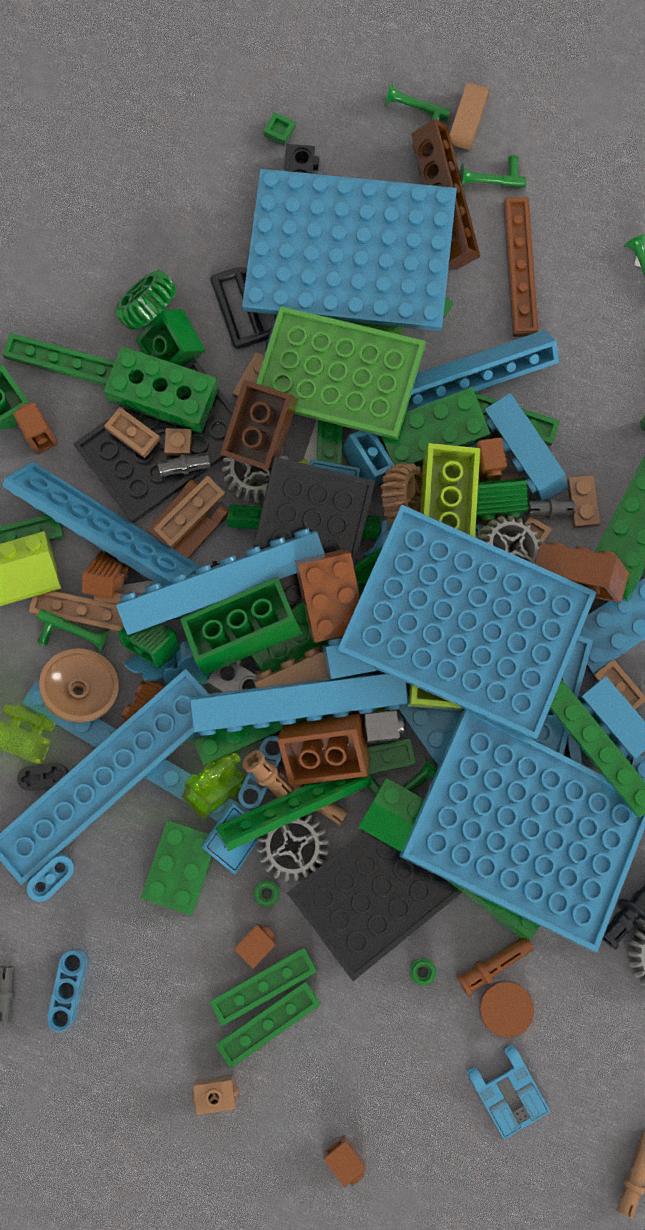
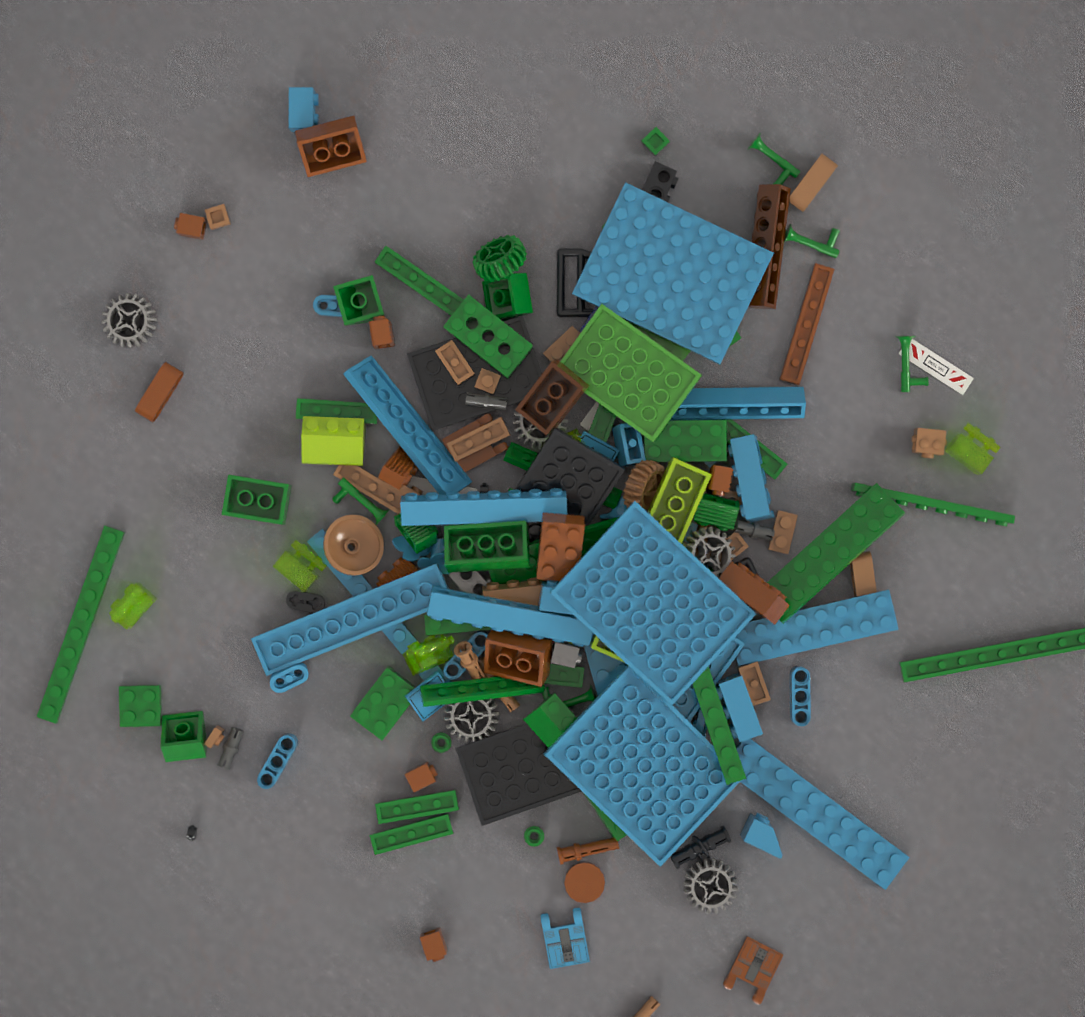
camera: 15 degrees right, 10 degrees up
(223, 1086) = (365, 864): medium nougat head -> none

